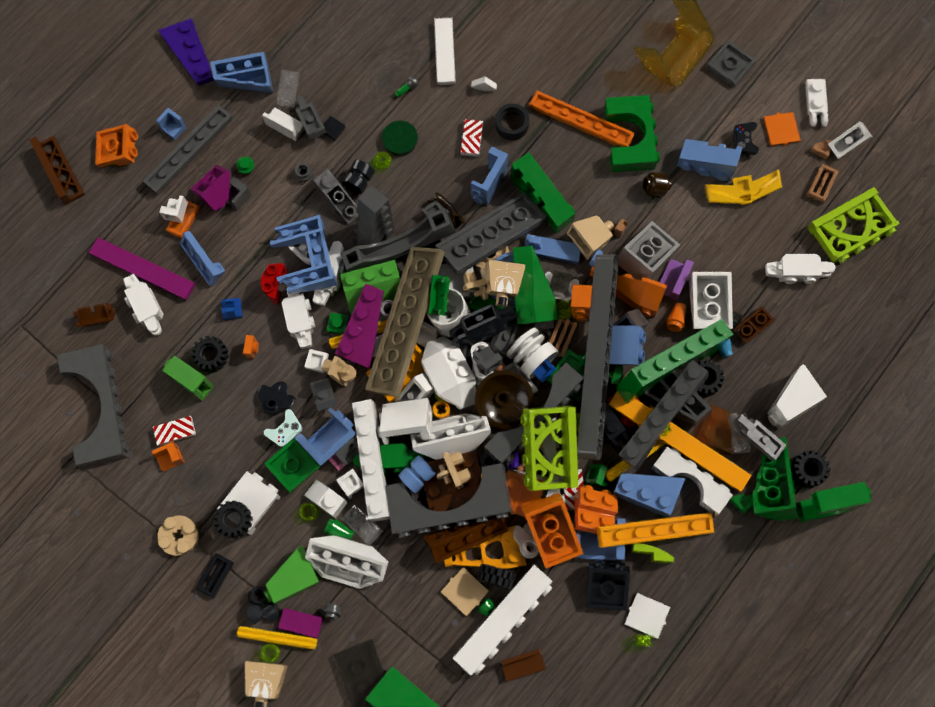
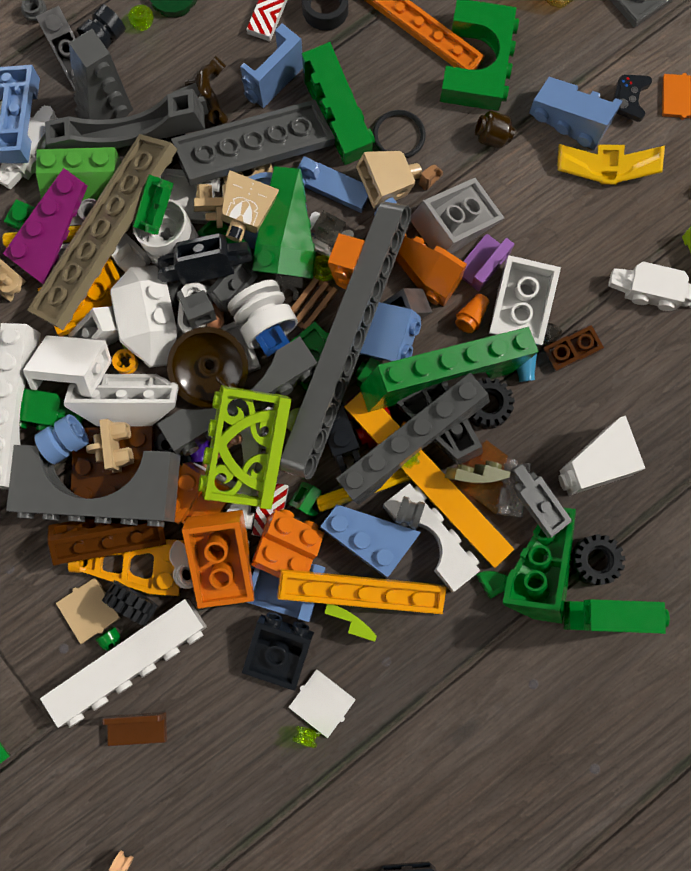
camera: 10 degrees right, 5 degrees up
(446, 185) = (214, 67): none -> dark brown piece
(594, 187) = (405, 113): none -> black tyre
(674, 466) = (410, 512): none -> dark grey wheel
(715, 427) = (479, 474): none -> olive slope

